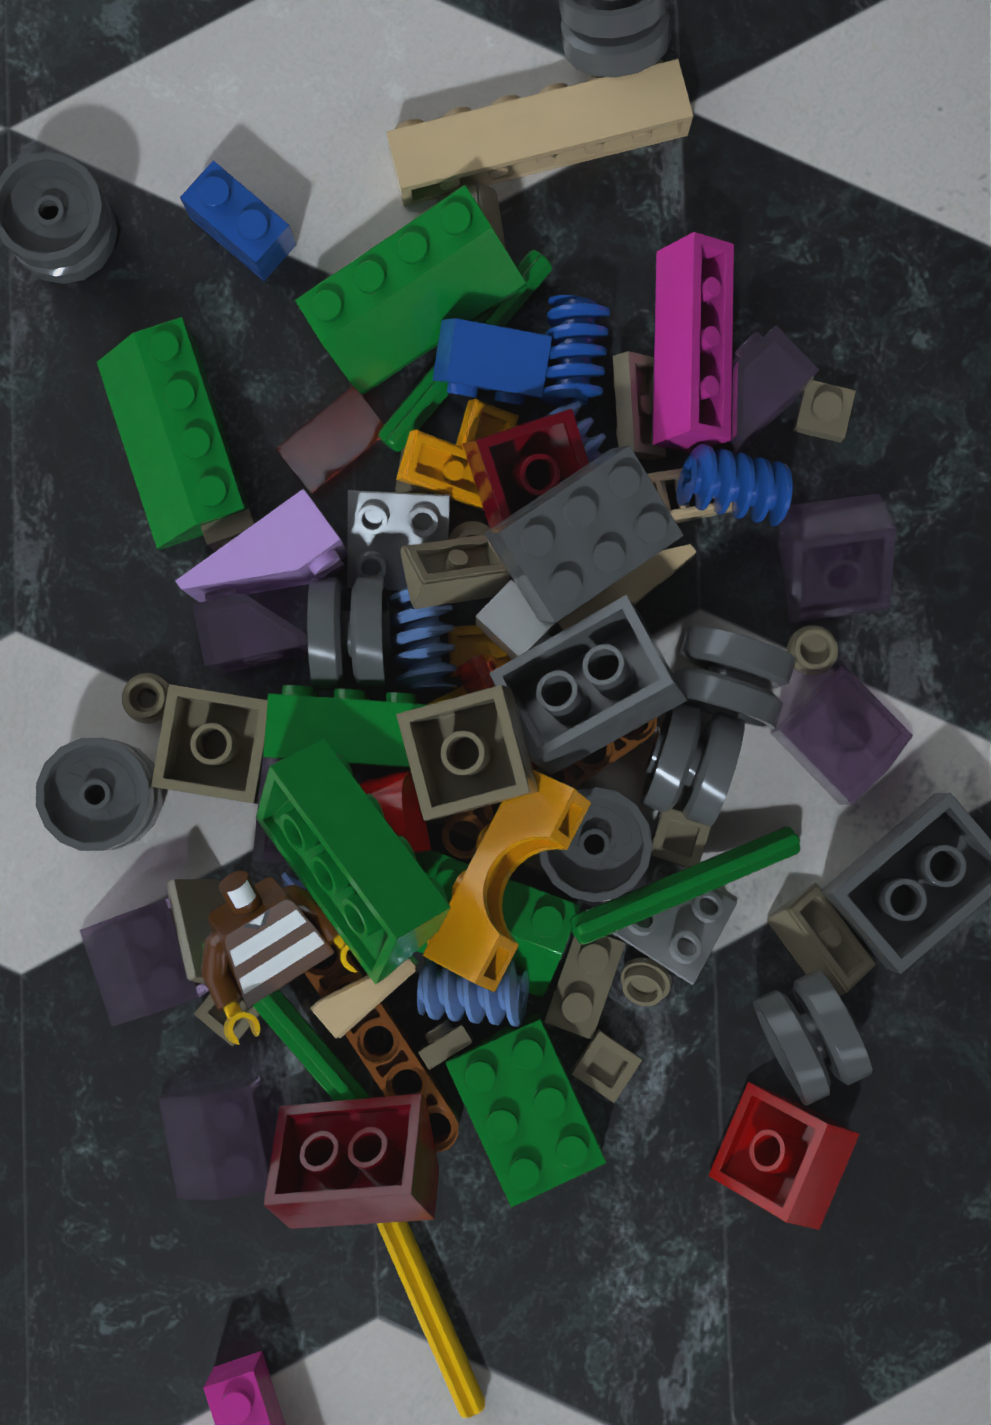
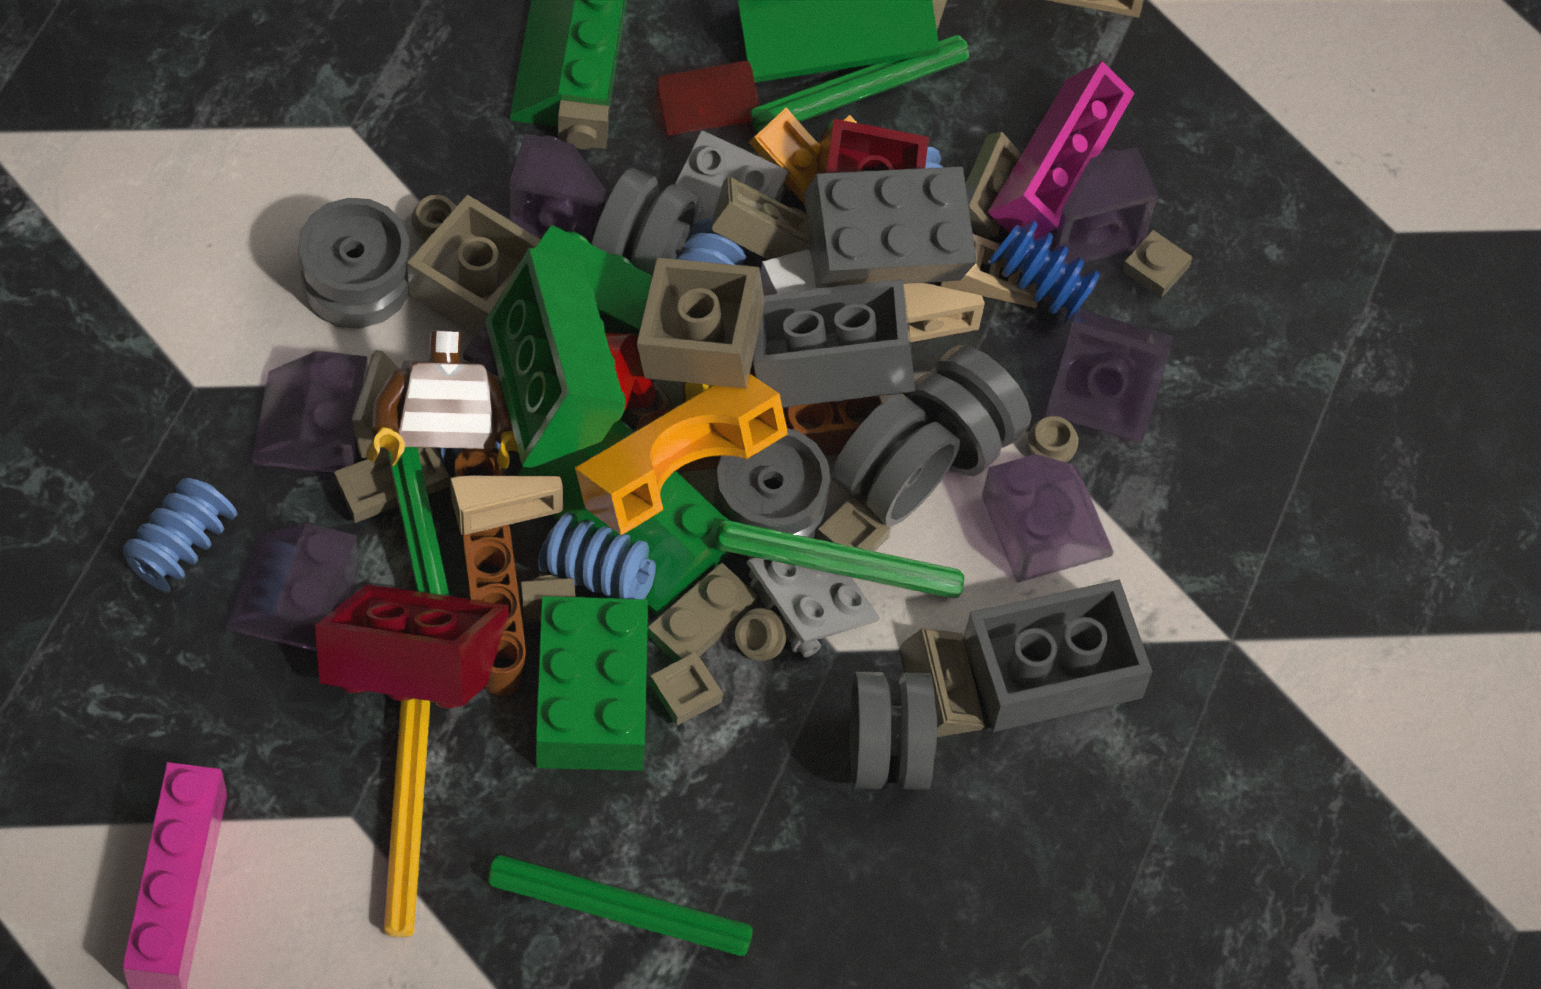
camera: 20 degrees right, 25 degrees down
(91, 1142) = (175, 529): none -> medium blue piece
(272, 554) = (614, 135): lavender slope -> none
(491, 359) = (879, 87): blue brick -> none
(573, 350) = (959, 115): blue piece -> none
(646, 1293) = (620, 905): none -> green axle
(783, 1156) = (816, 839): red slope -> none

